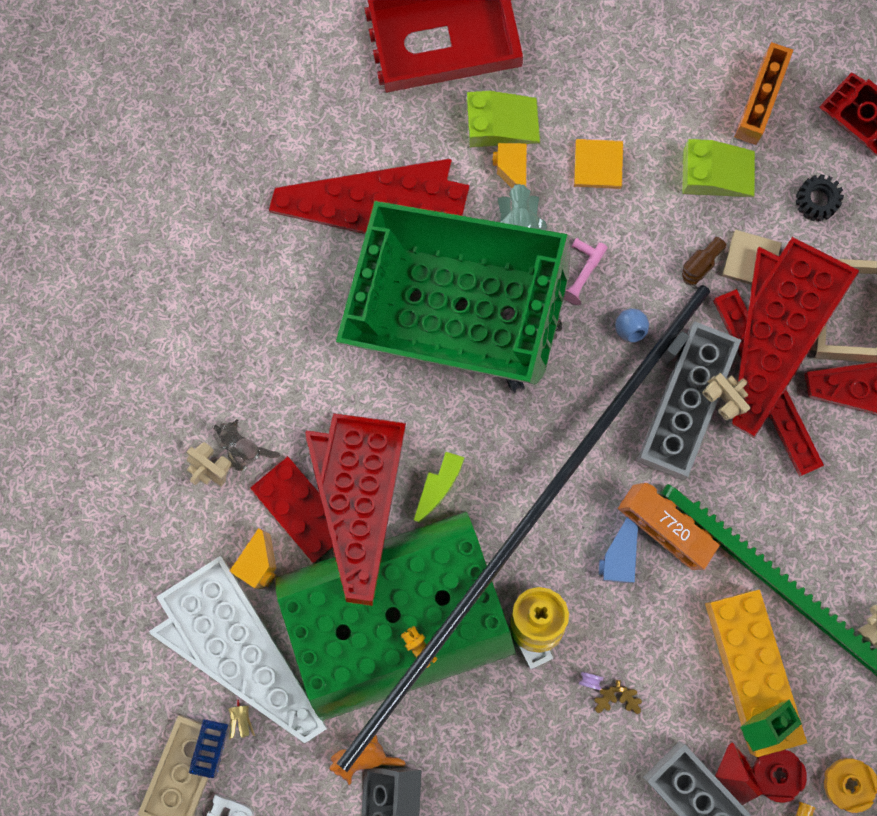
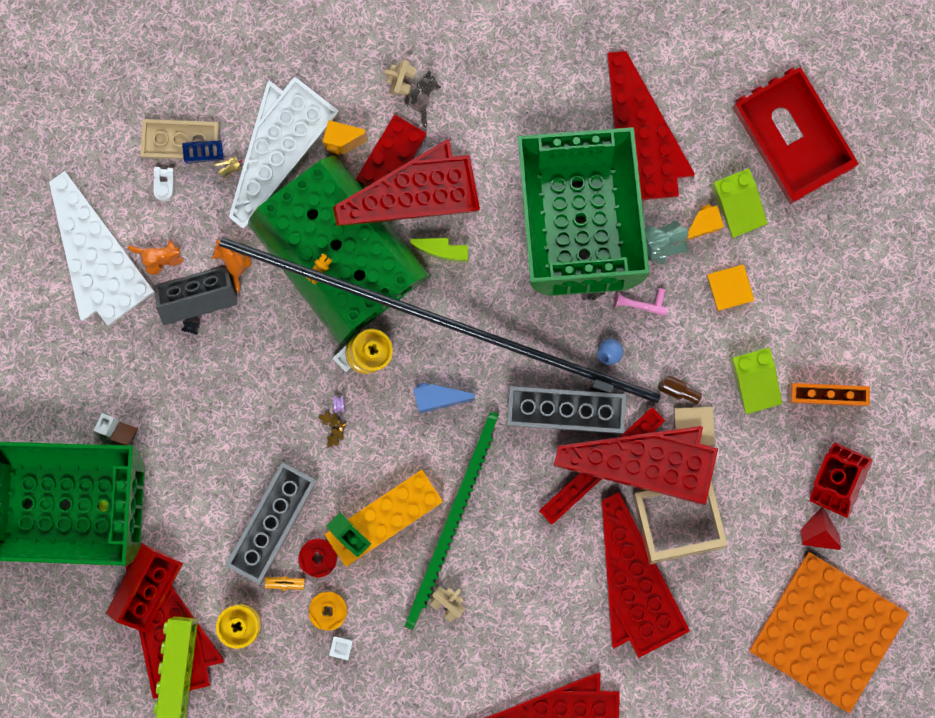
camera: 65 degrees right, 5 degrees up
(669, 526) = (467, 422): orange brick -> none
(731, 392) = (571, 440): tan hips -> none
(738, 776) = (308, 526): red slope -> none
(826, 186) = (772, 464): black tyre -> none

